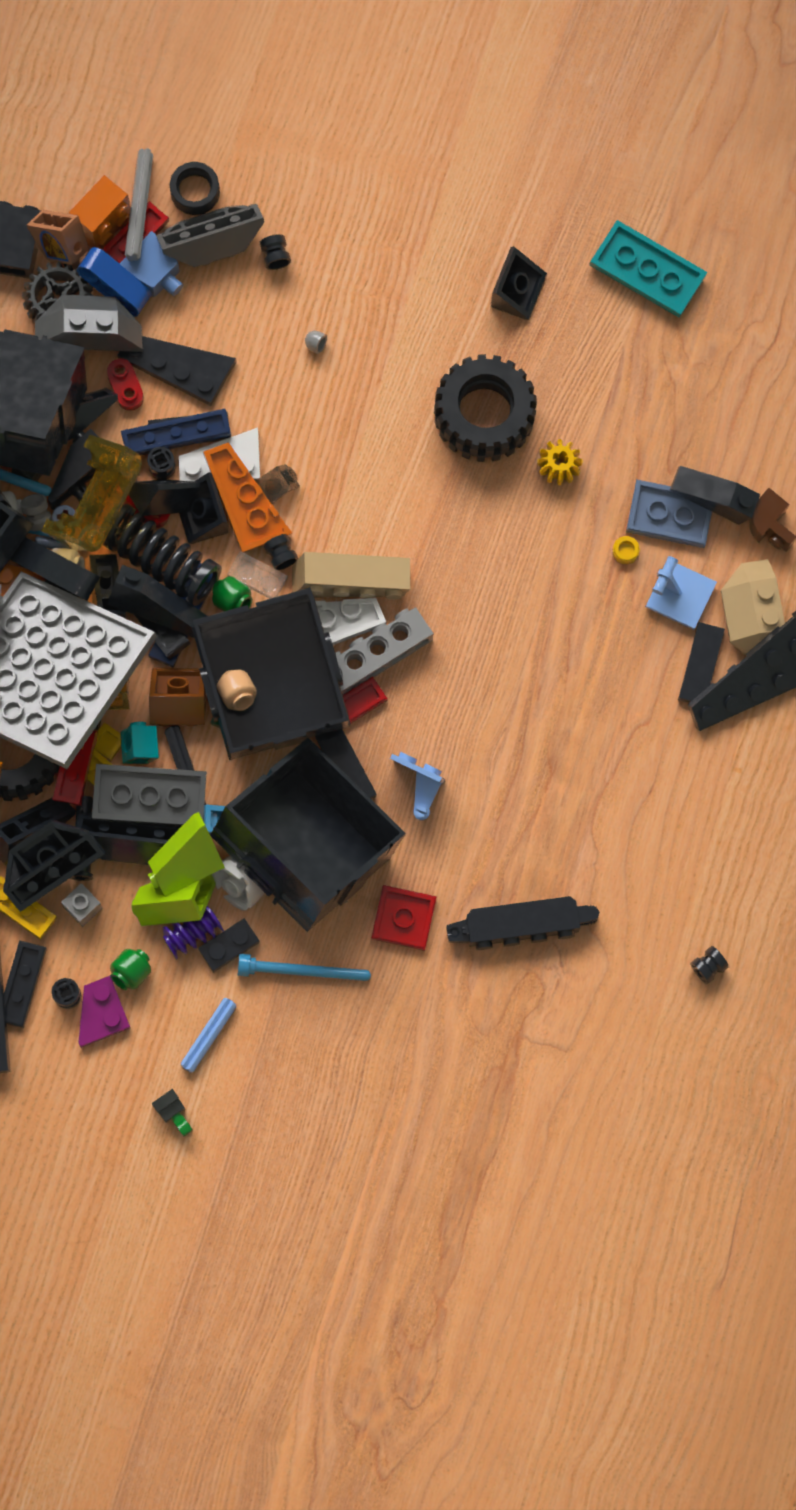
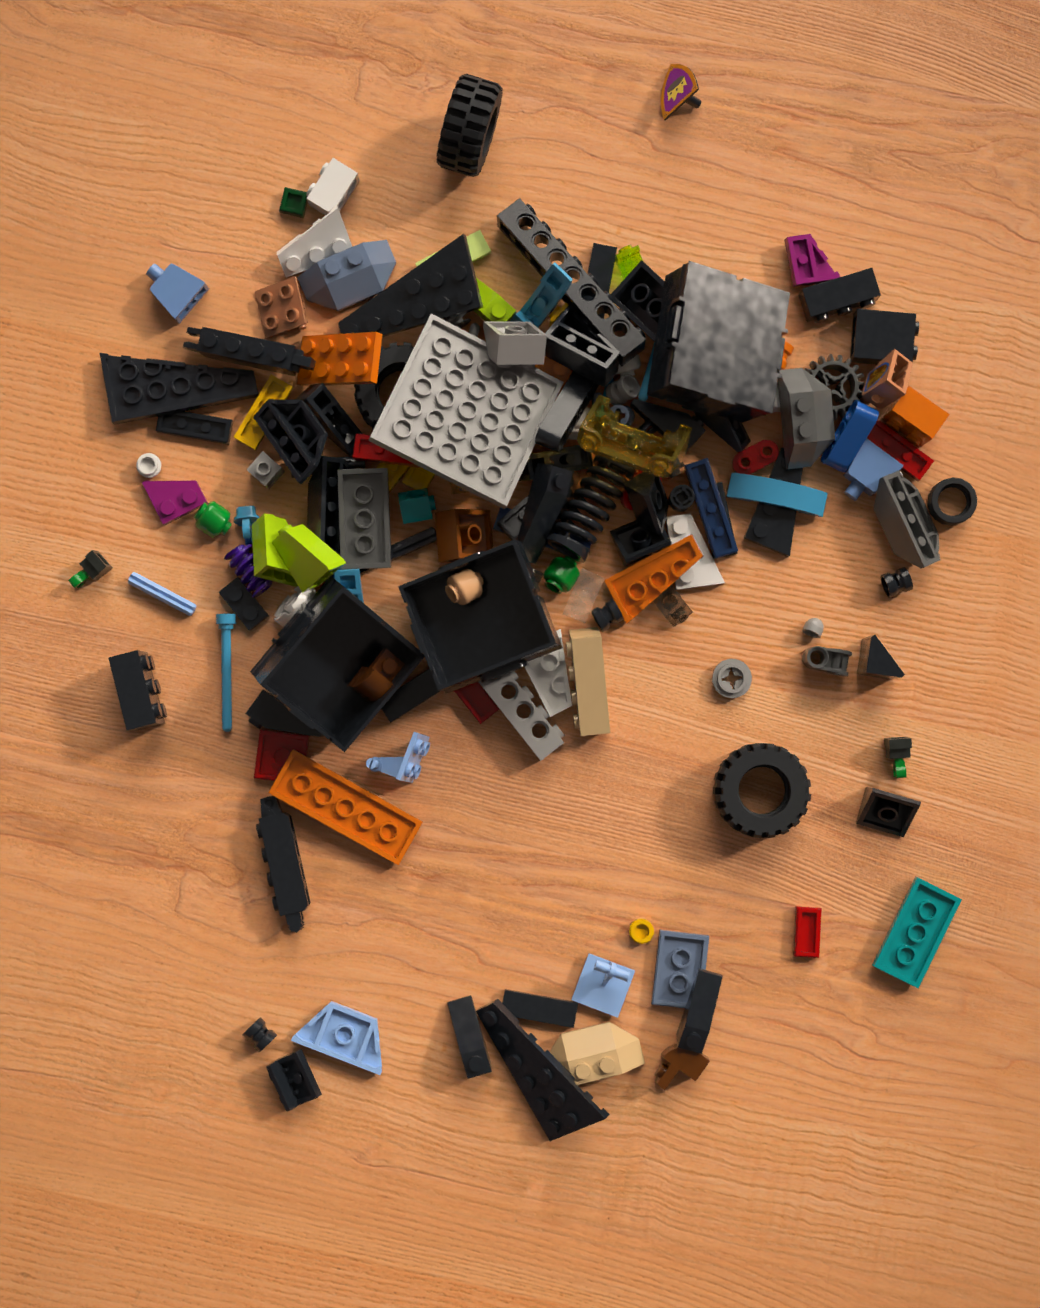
camera: 85 degrees right, 10 degrees up
(60, 1038) = (148, 465): none -> white plate
(70, 996) = (191, 467): black wheel -> none
(133, 933) = (245, 518): none -> dark azure piece
(139, 204) = (928, 451): light grey axle -> none
(166, 365) = (777, 493): none -> dark azure slope
(316, 1063) = (137, 690): none -> black brick
(330, 797) = (376, 680): none -> reddish brown brick
(353, 327) = (831, 660): none -> dark grey piece
(356, 278) = (876, 660): none -> black slope
(357, 916) = (273, 714): none -> black slope
(370, 422) = (740, 686): none -> light grey gear
(453, 268) = (898, 749): none -> pearl dark grey piece
(465, 849) = (345, 807): none -> orange plate
(554, 454) = (726, 859): yellow gear -> none
(639, 379) = (807, 932): none -> red tile
(716, 874) = (344, 1035): none -> light blue wing
(727, 738) = (469, 1037): none -> black slope
(761, 931) = (293, 1080): none -> black bracket

